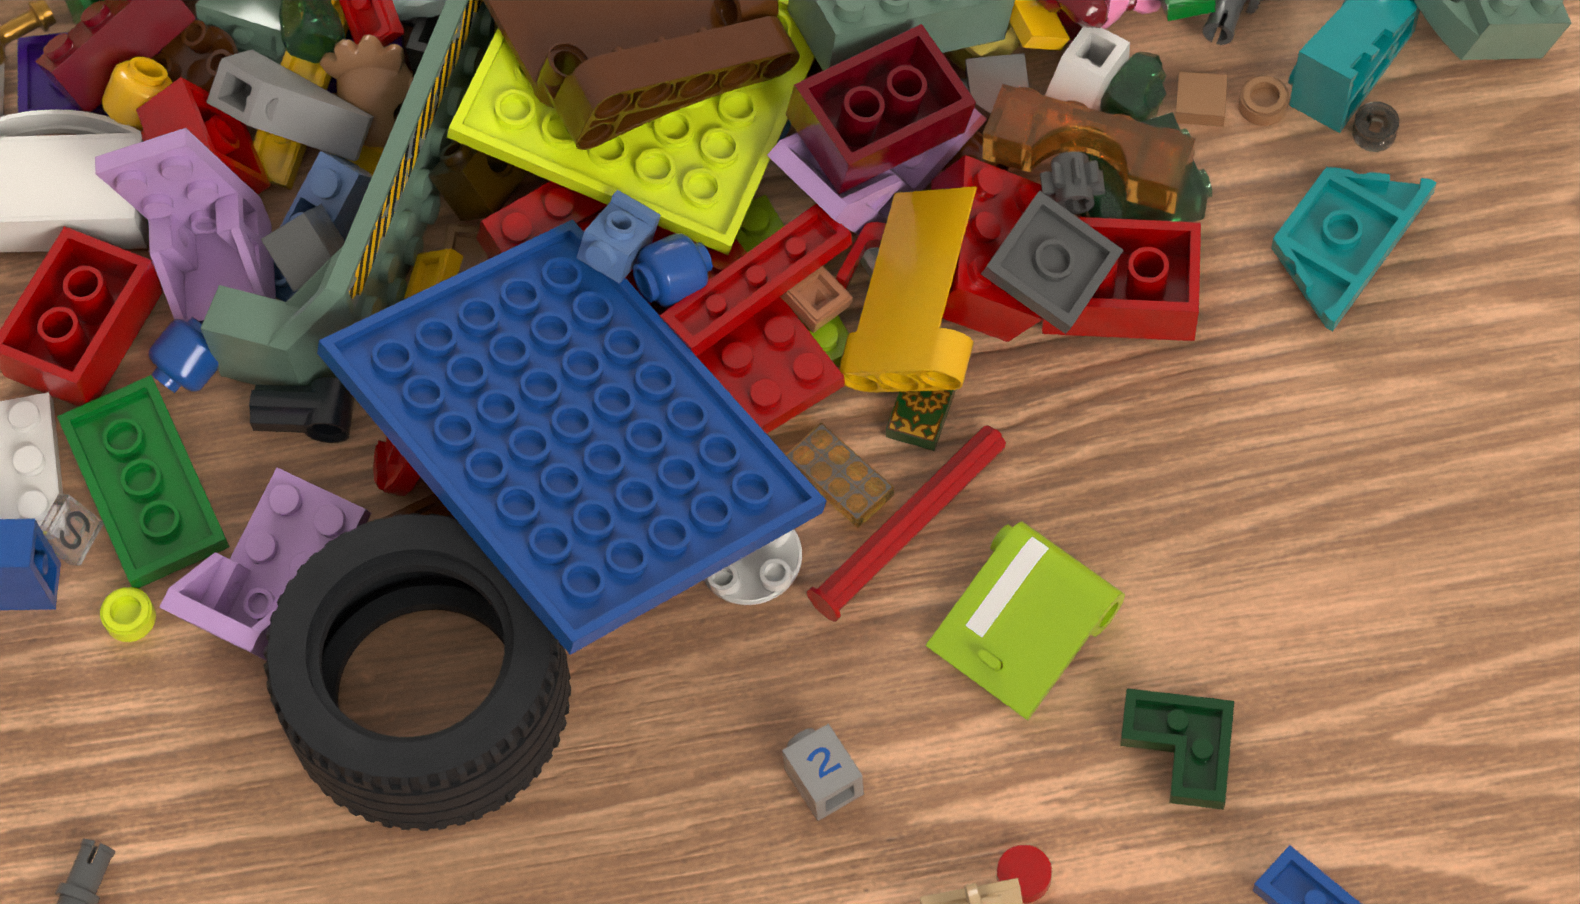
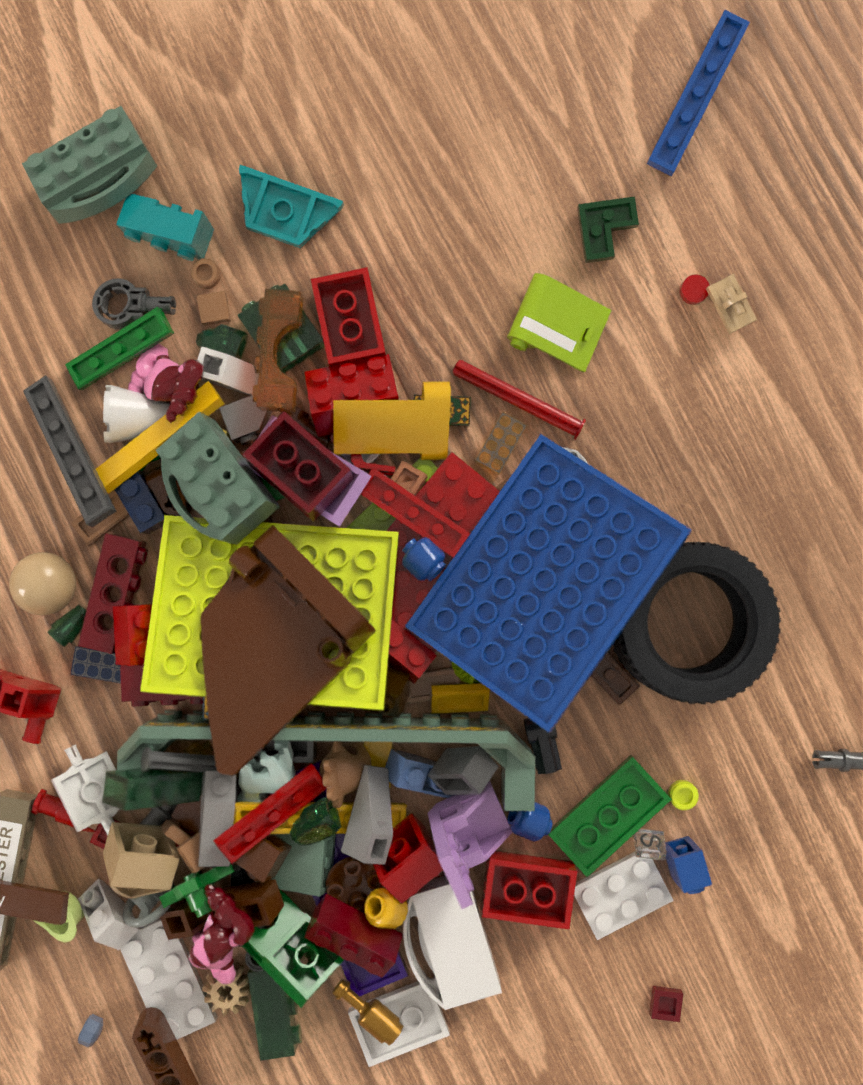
camera: 110 degrees left, 25 degrees up
(241, 593) = (655, 724): lavender bracket -> none
(617, 236) = (405, 590): medium blue brick -> none
(822, 771) = (673, 402): light grey brick -> none
(1052, 262) = (366, 348): dark grey plate -> none
(1073, 181) = (305, 354): dark grey gear -> none
(1371, 140) = (202, 200): clear smoke bush -> none

